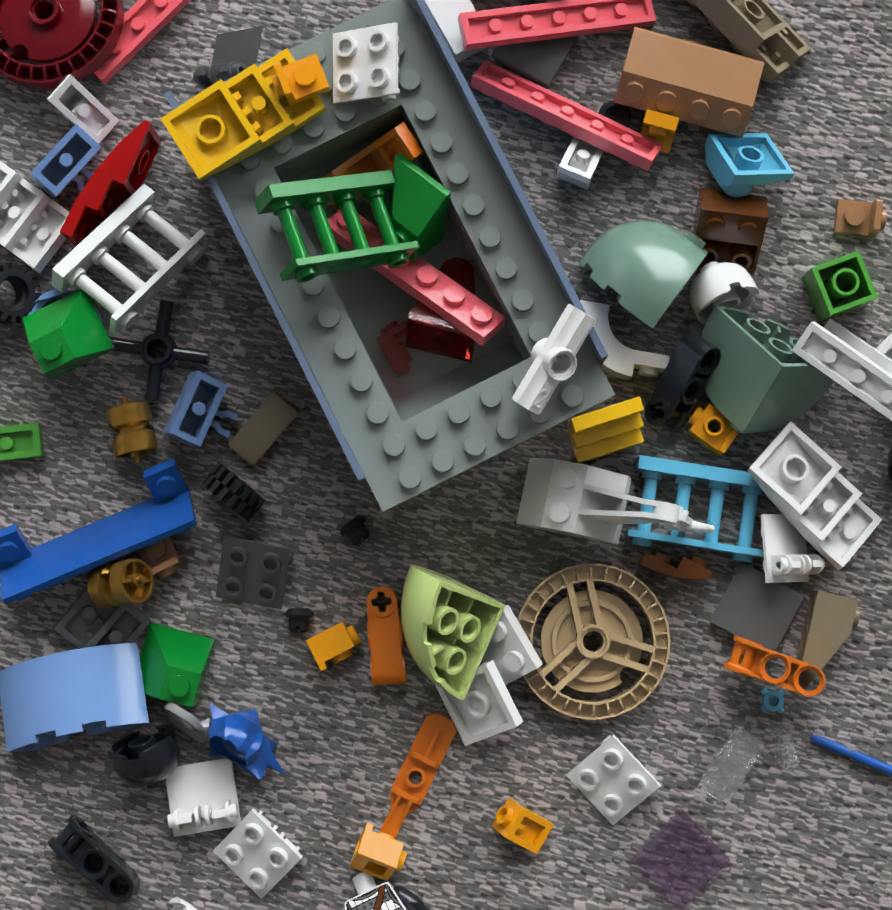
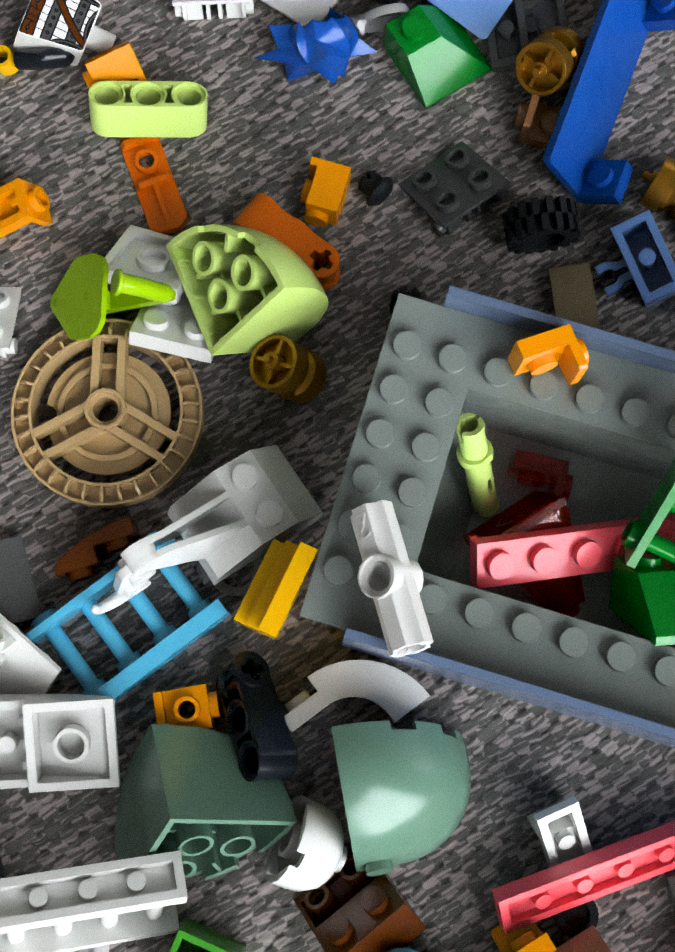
camera: 130 degrees right, 5 degrees down
(349, 394) = (548, 350): none -> light orange bracket
(367, 802) = (148, 108): none -> yellowish green beam
(430, 387) = (475, 456): none -> yellowish green pin
(466, 557) = (287, 369): none -> pearl gold wheel
(542, 717) = (84, 296): none -> lime piece

